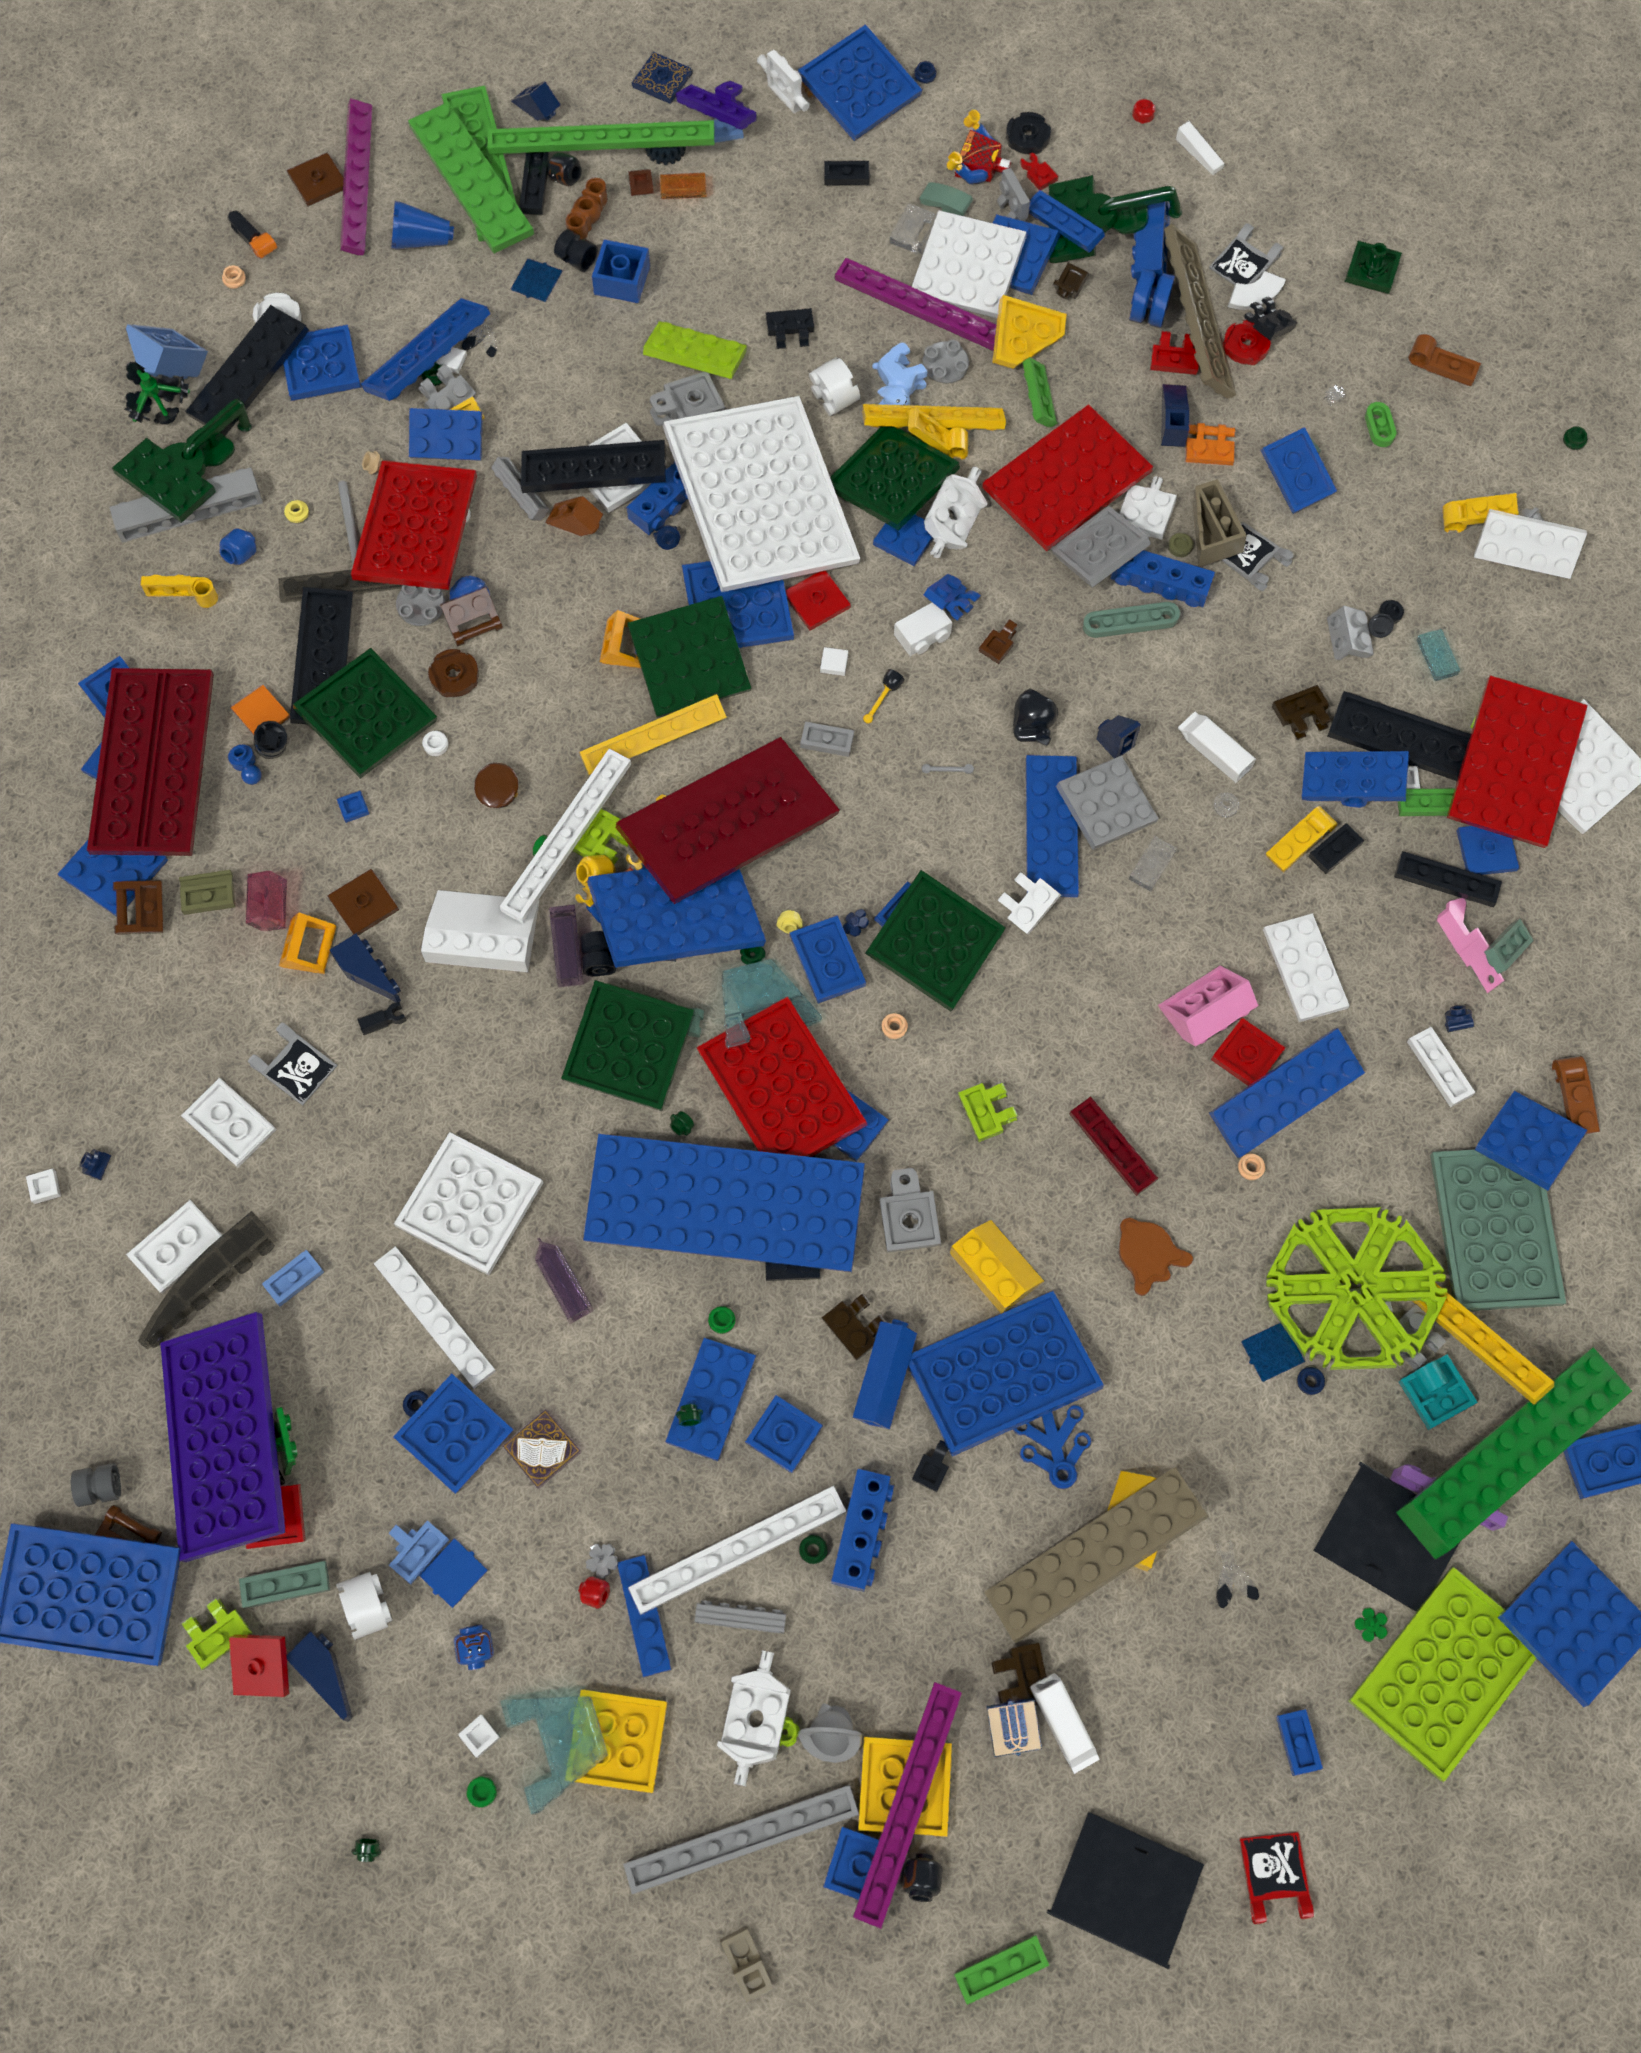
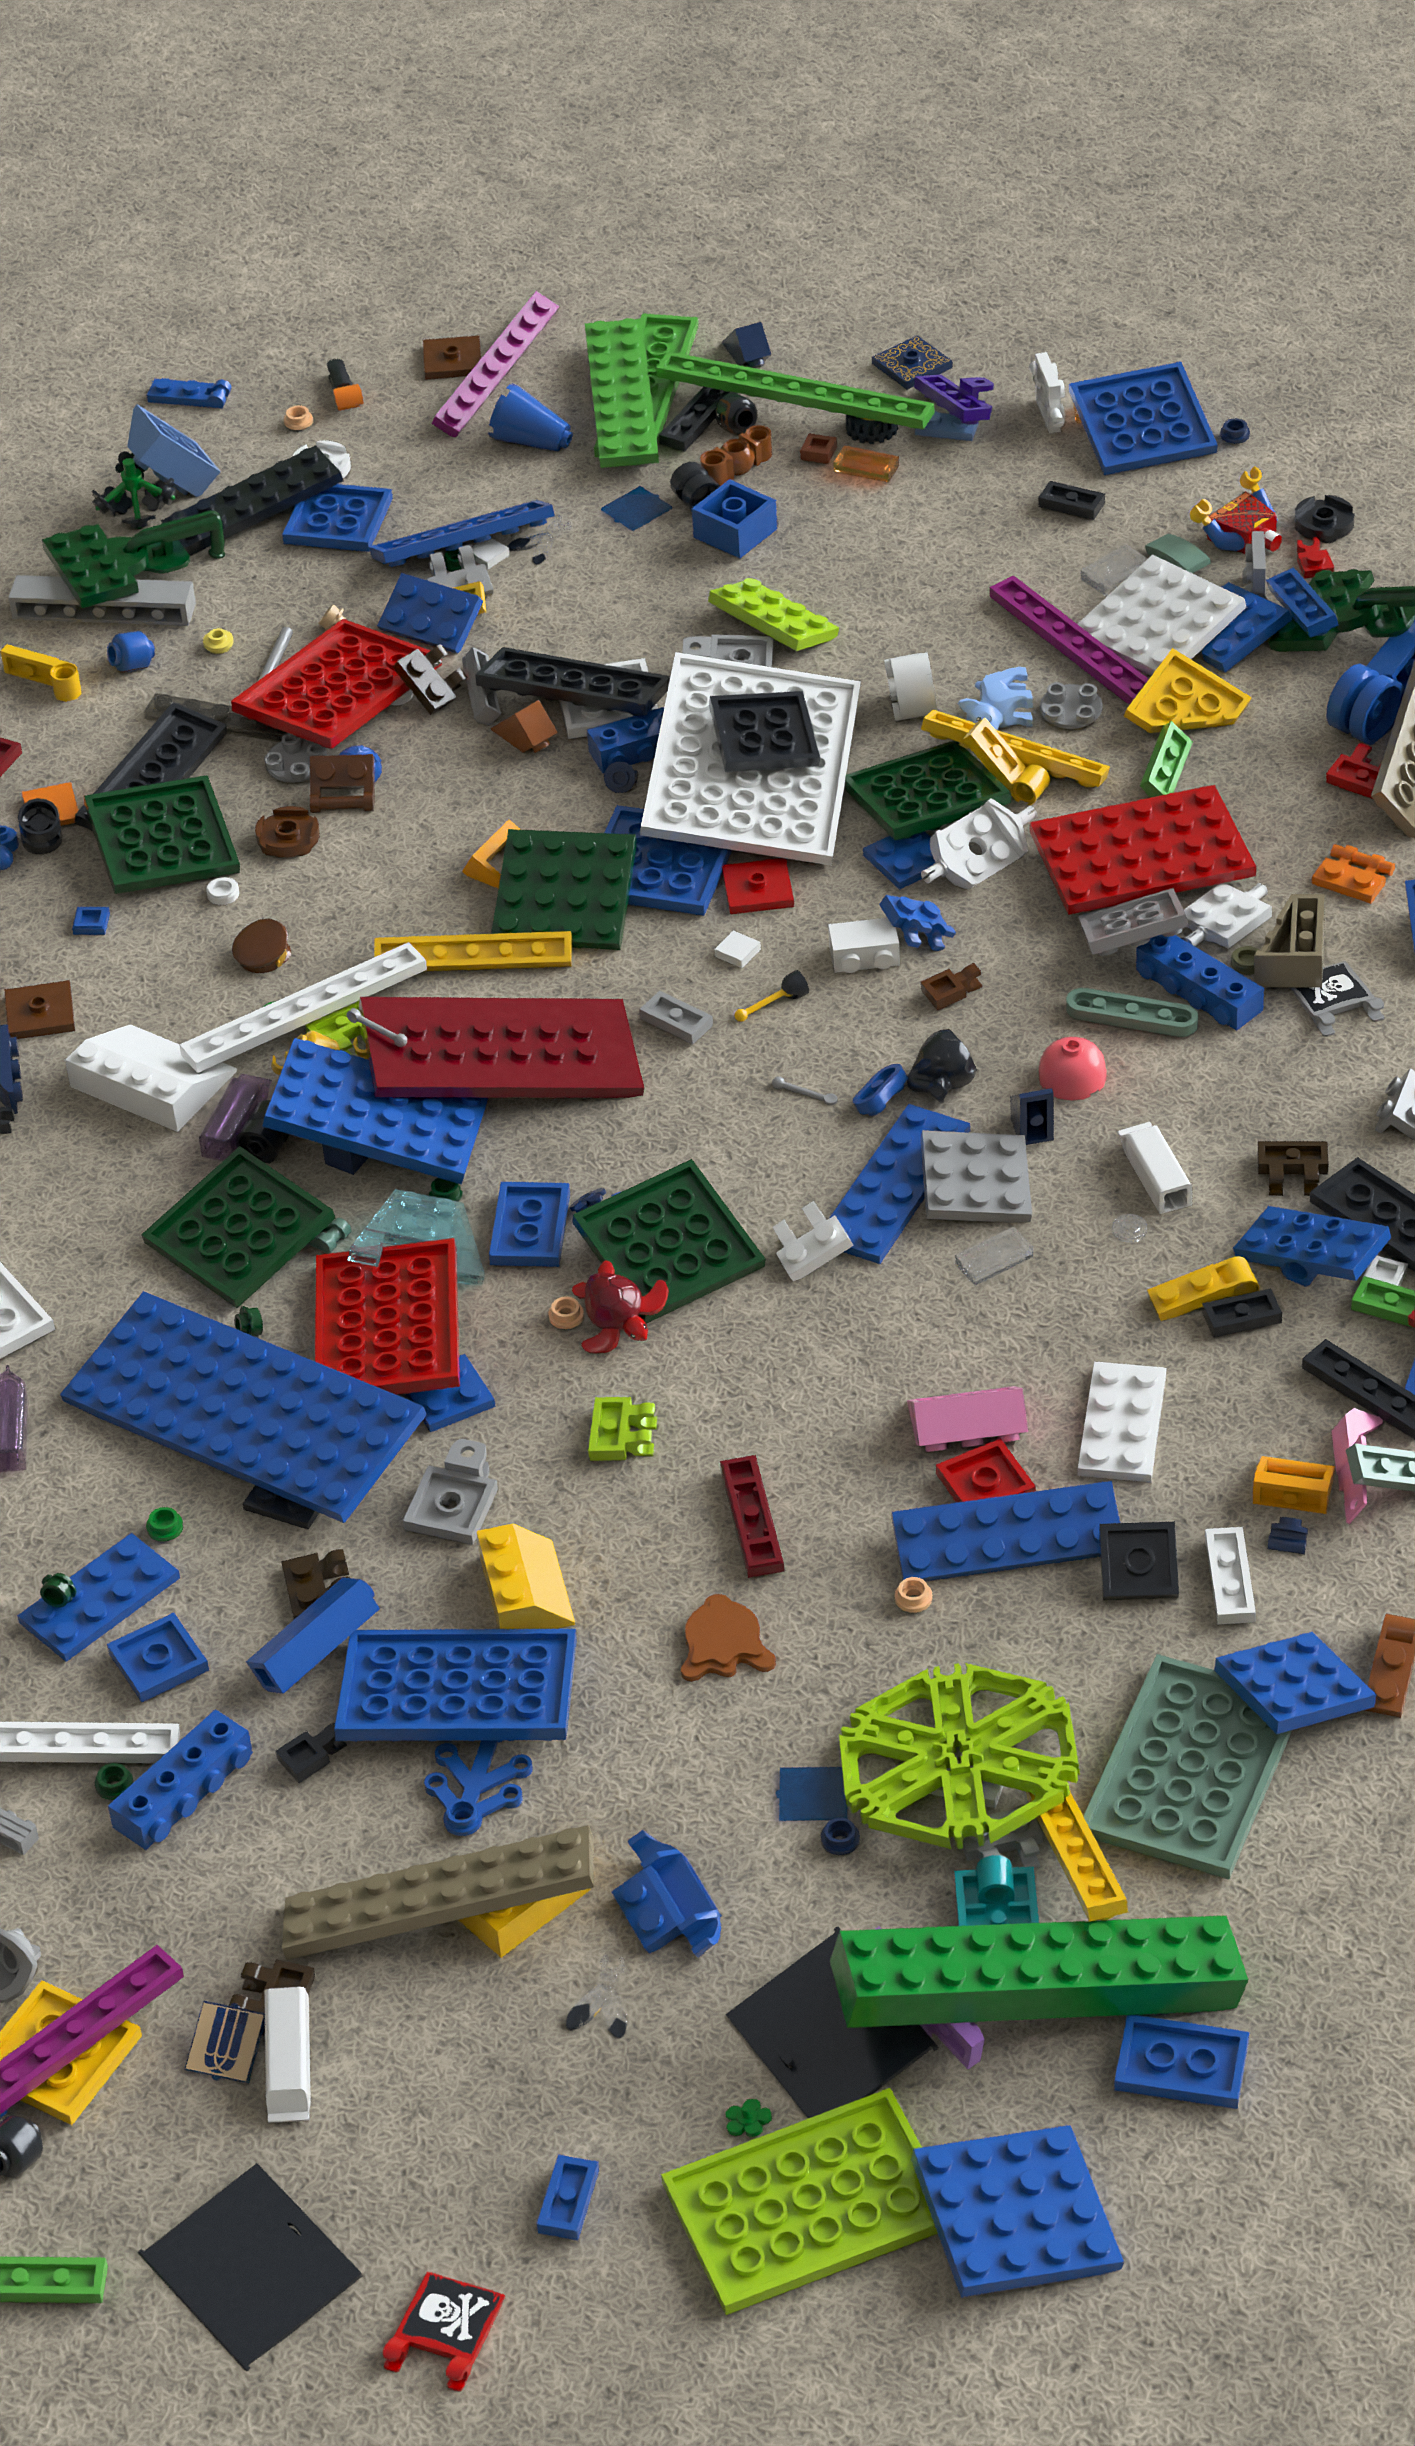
camera: 30 degrees right, 25 degrees down
(133, 278) = (189, 393): none -> blue plate
(479, 500) = (425, 682): none -> plate
(625, 843) = (355, 1016): none -> light grey hinge
(764, 470) = (764, 731): none -> black plate
(789, 921) = (508, 1171): light yellow plate -> none
(790, 322) = (908, 621): black plate -> none
(932, 1011) = (615, 1305): none -> animal
(1001, 755) = (880, 1089): none -> blue plate
(1070, 281) = (1279, 669): dark brown bracket -> none
(1118, 684) = (1072, 1068): none -> coral cylinder
(1174, 415) = (1319, 830): dark blue slope -> none
(1234, 1482) = (667, 1899): none -> blue plate
(1383, 1082) = (1138, 1560): none -> black plate
(1443, 985) = (1290, 1490): none -> light orange tile

